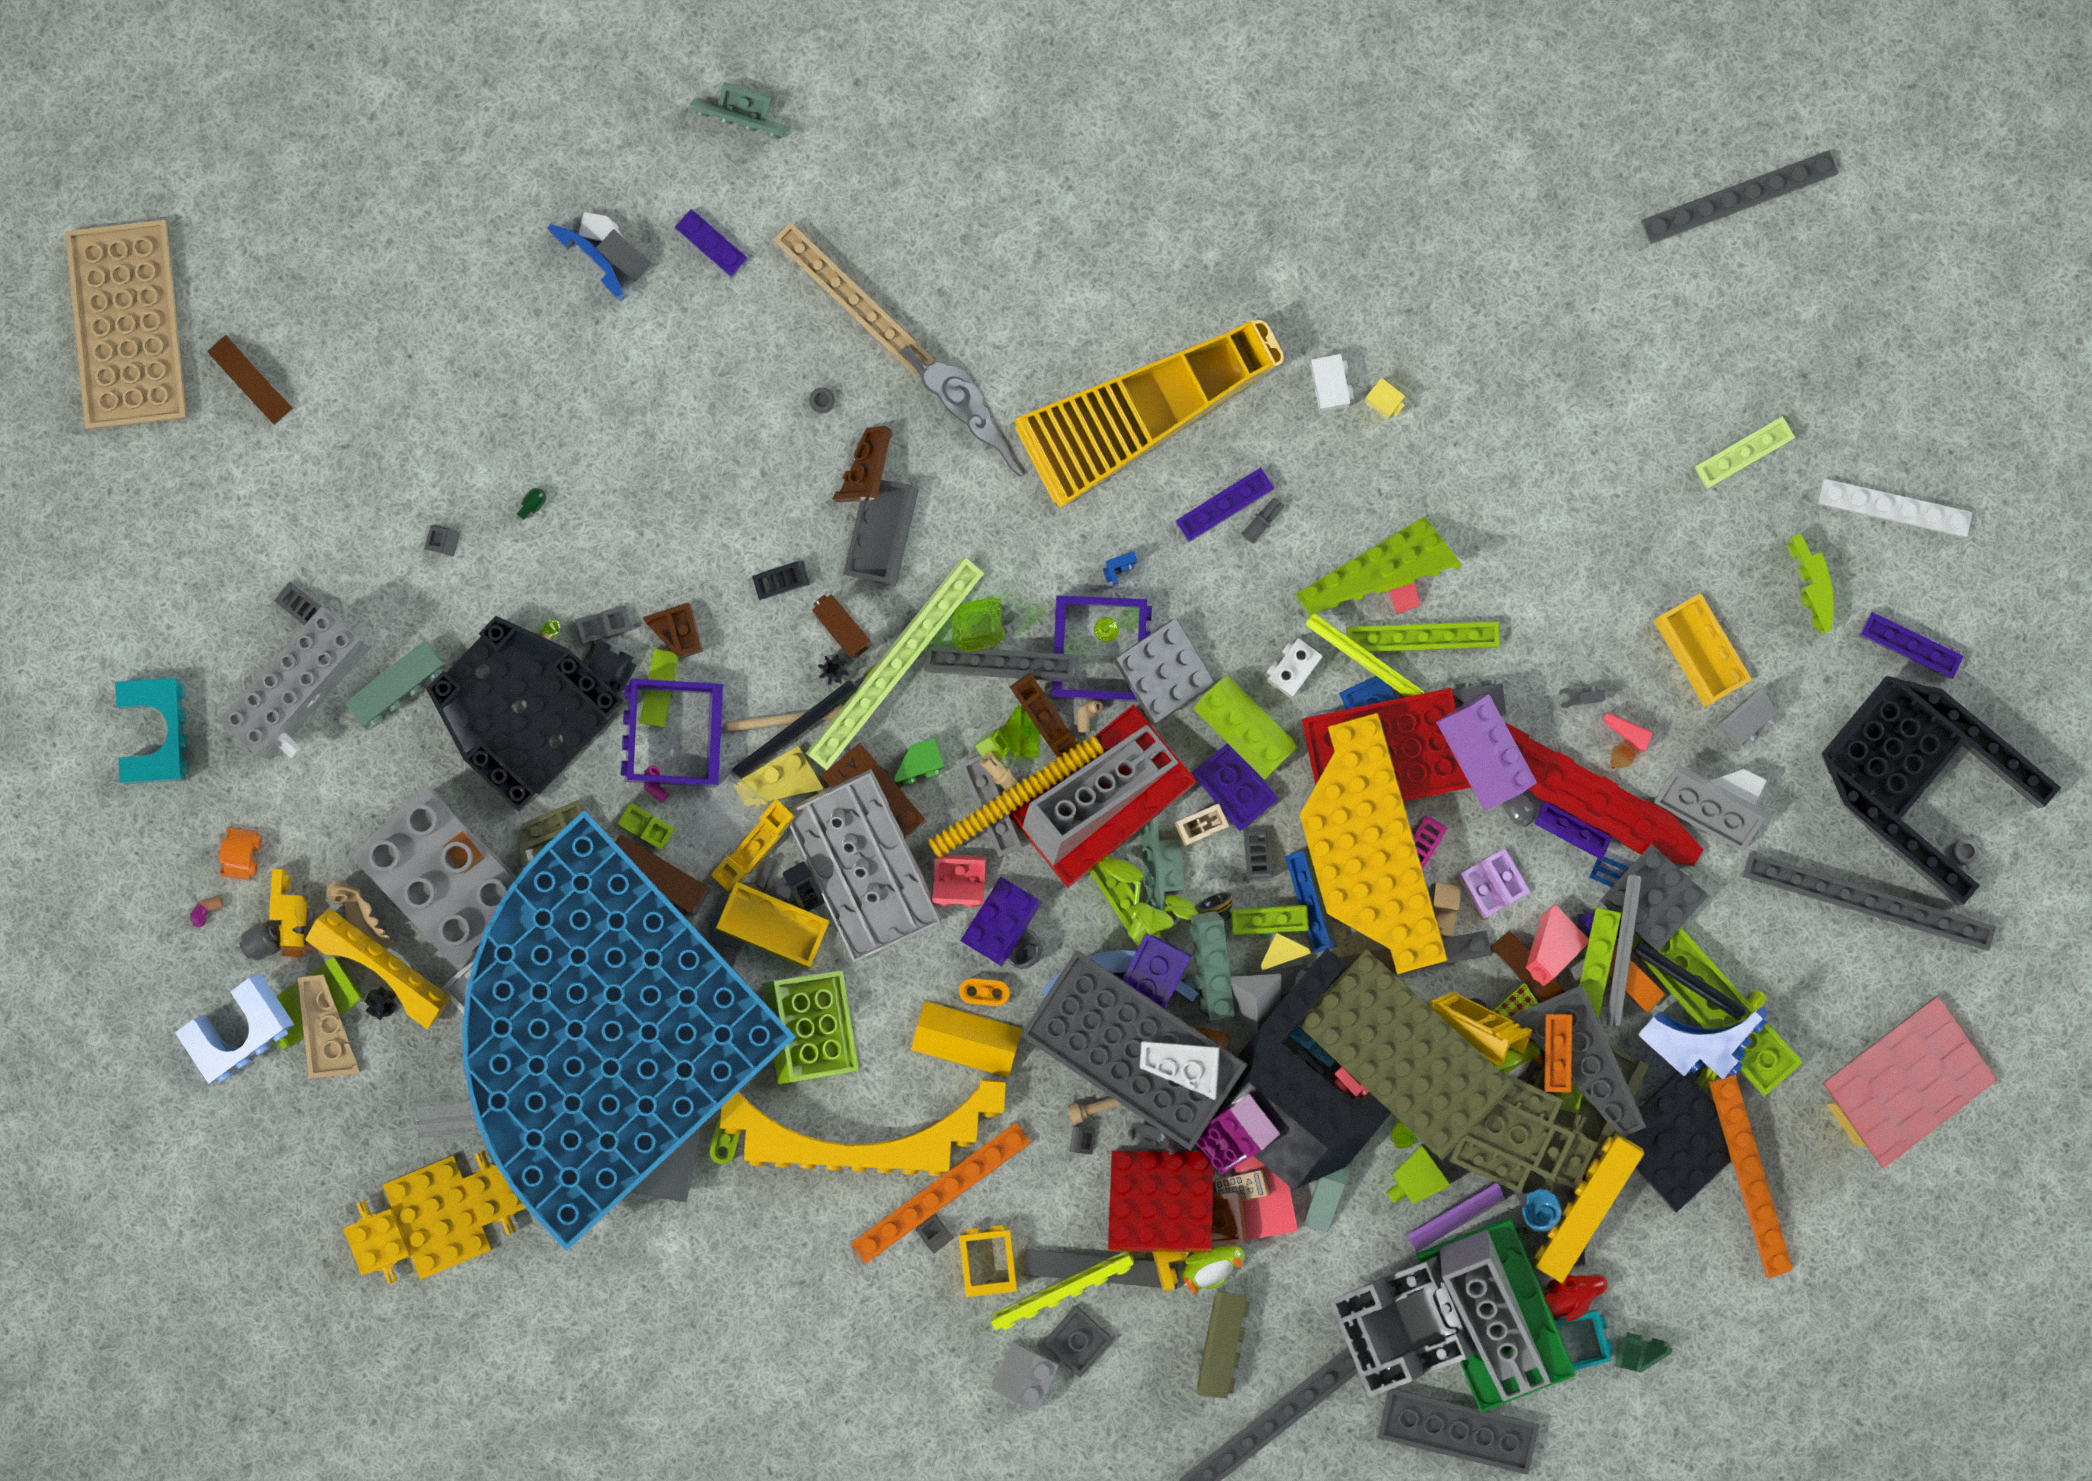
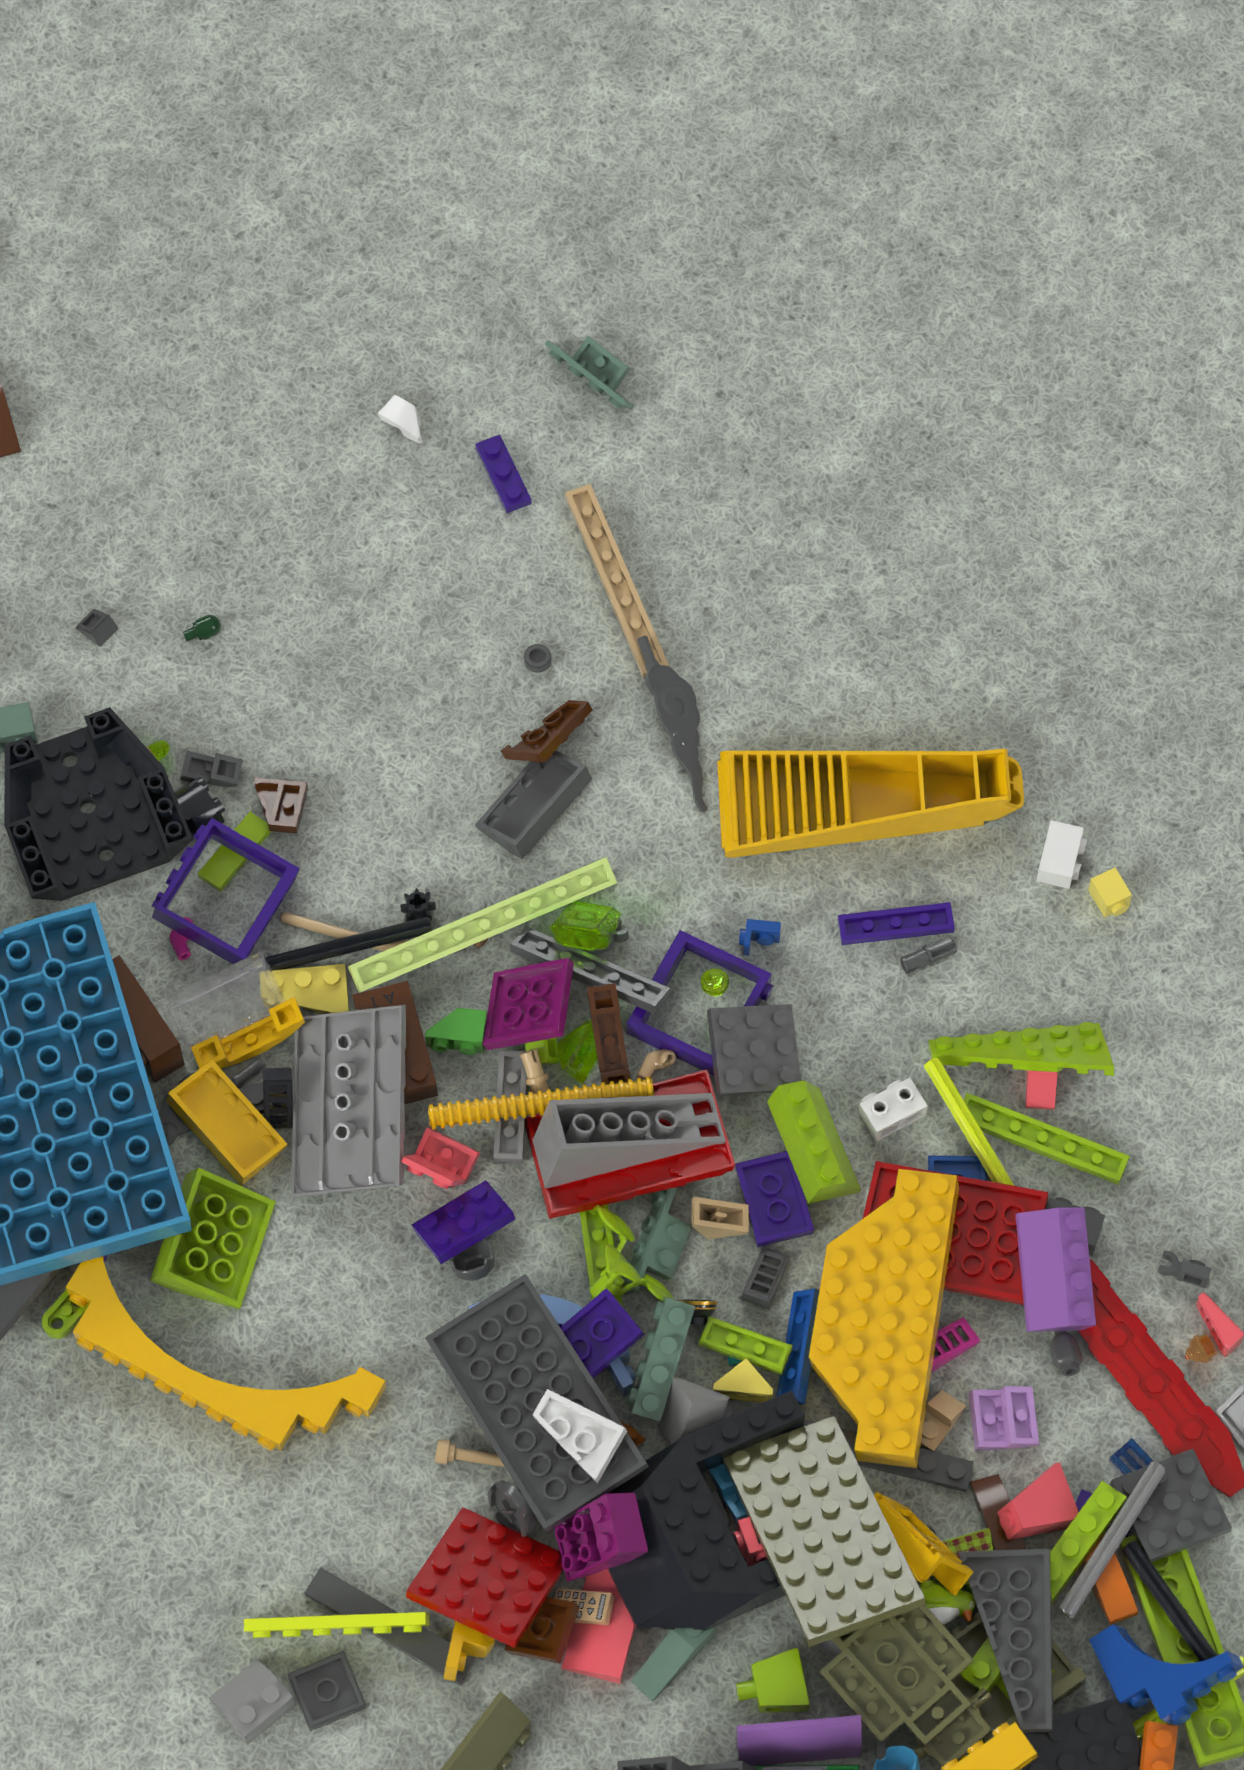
camera: 20 degrees right, 20 degrees down
(568, 238) = (368, 411): blue slope -> none
(624, 255) = (412, 445): dark grey slope -> none
(645, 826) = (151, 973): lime slope -> none
(800, 572) = (420, 813): black slope -> none
(841, 626) = (447, 866): reddish brown window -> none
(934, 1233) = (232, 1509): dark grey slope -> none
(940, 1192) = (260, 1469): orange plate -> none
(966, 717) = (528, 1004): none -> magenta plate
(966, 1039) = (366, 1326): yellow slope -> none
(984, 992) = (411, 1286): light orange plate -> none
(988, 1288) = (264, 1589): yellow window -> none
(1082, 1140) = (437, 1483): dark grey slope -> none
(1212, 1268) = (507, 1671): animal -> none
(1402, 1136) = (782, 1634): clear neon green plate -> none
(1558, 1053) = (991, 1607): orange plate -> none
(1573, 830) = (1114, 1400): dark purple plate -> none

